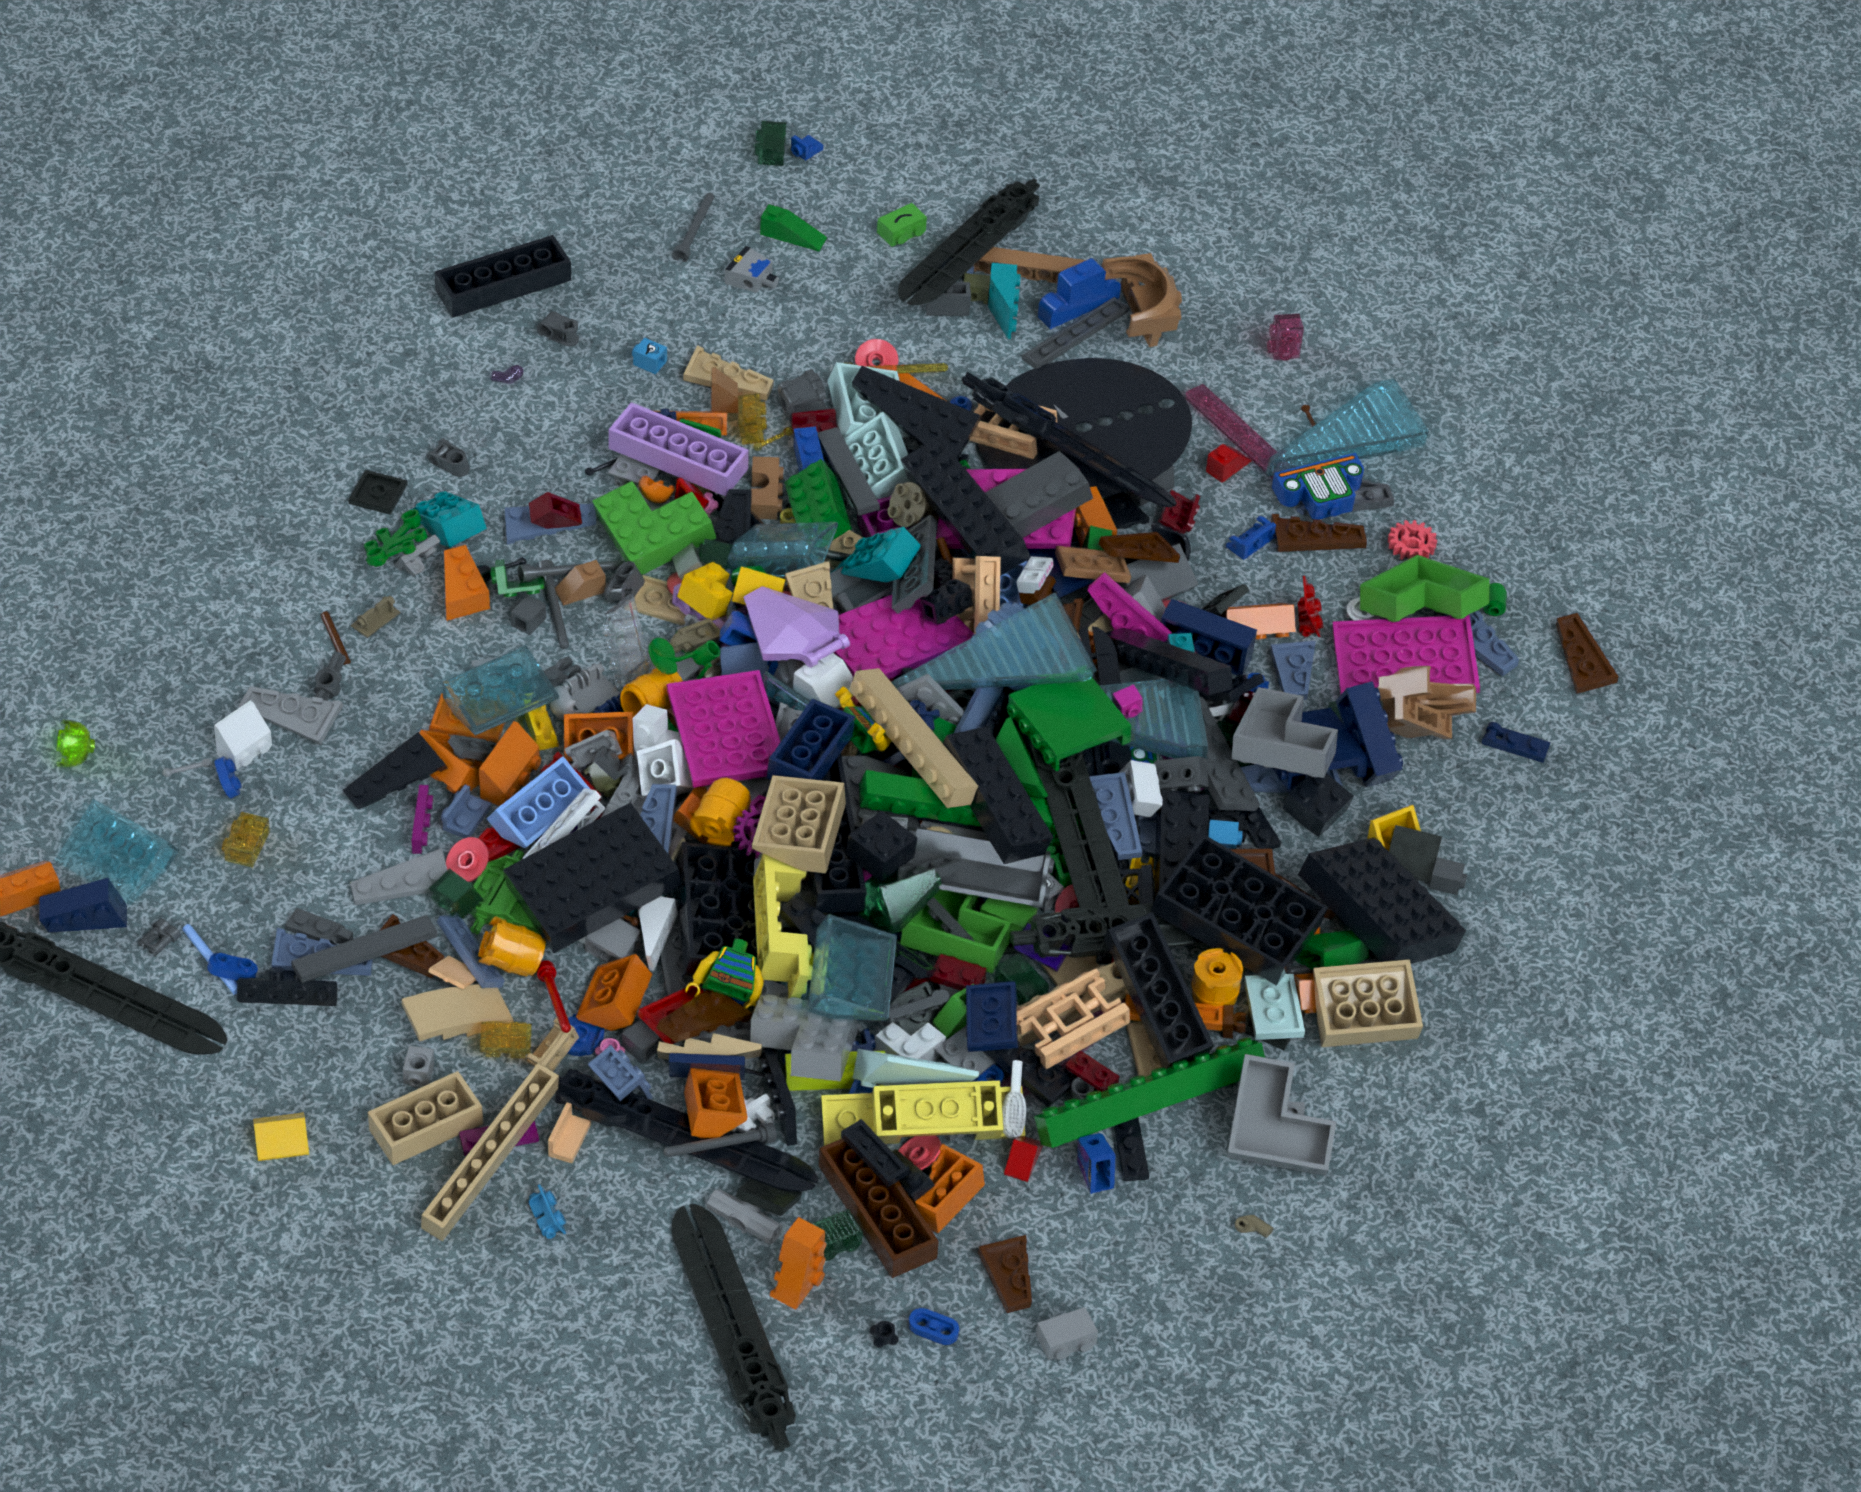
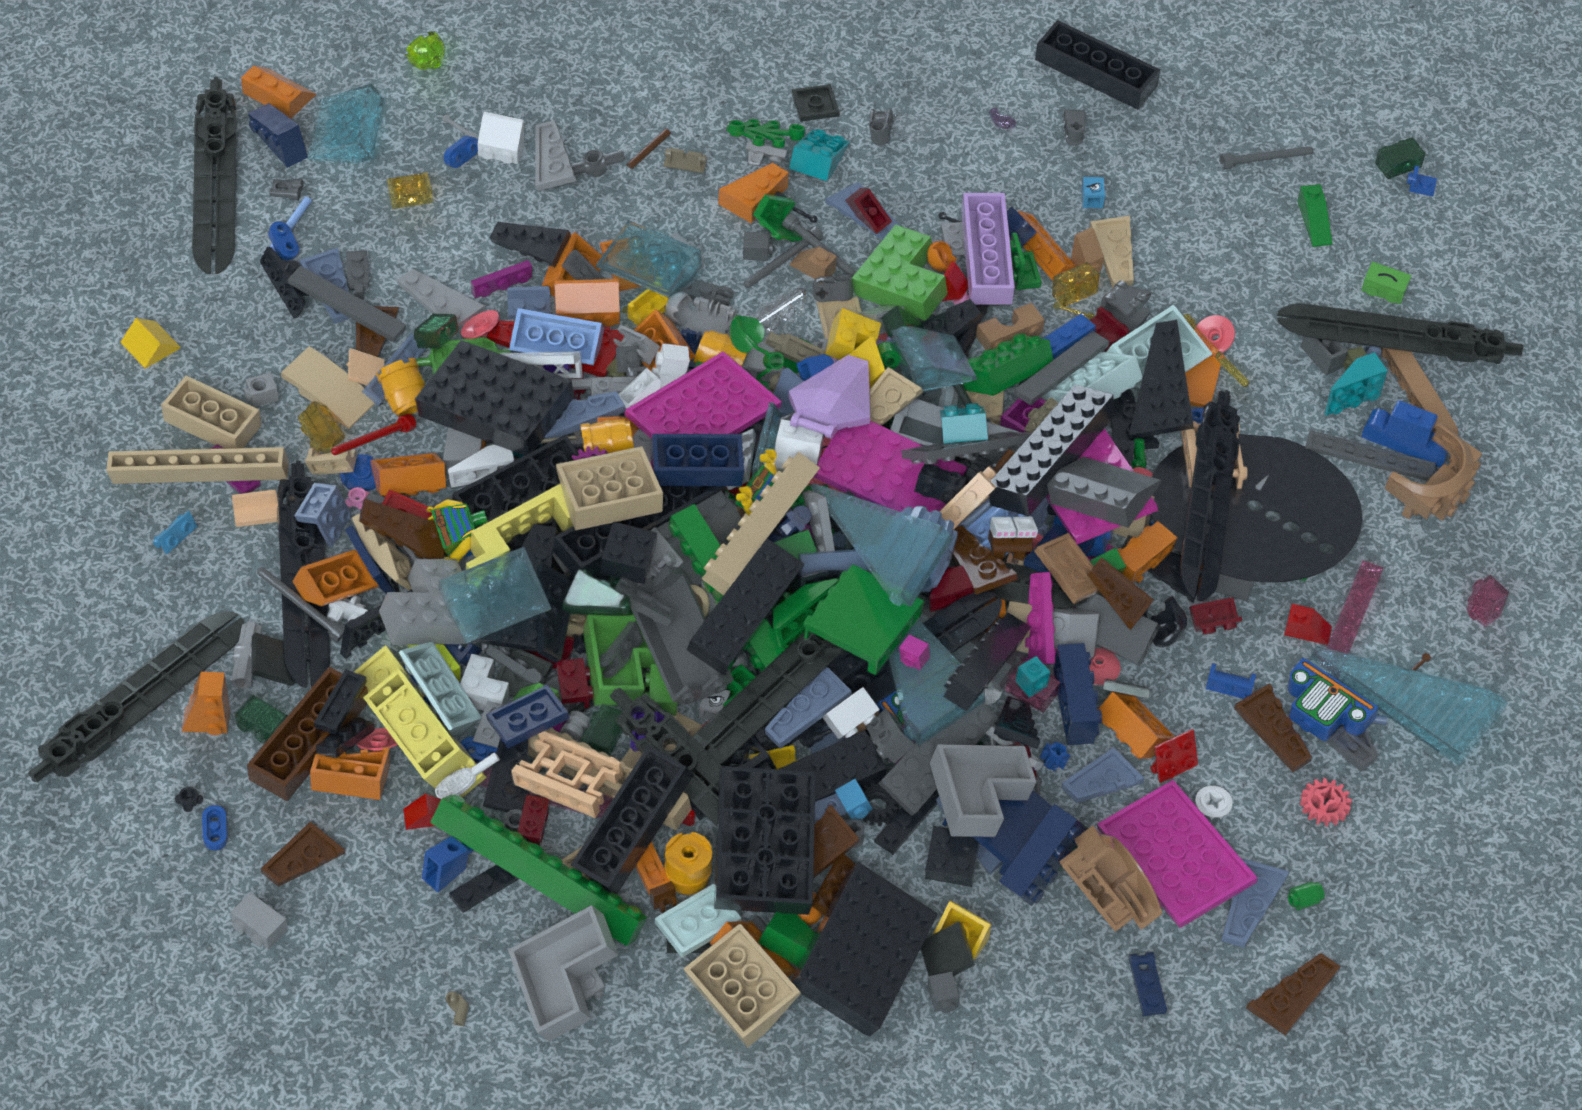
camera: 60 degrees right, 5 degrees up
(750, 271) = (1242, 211): light grey torso -> none
(1422, 584) = (1262, 822): bright green piece -> none

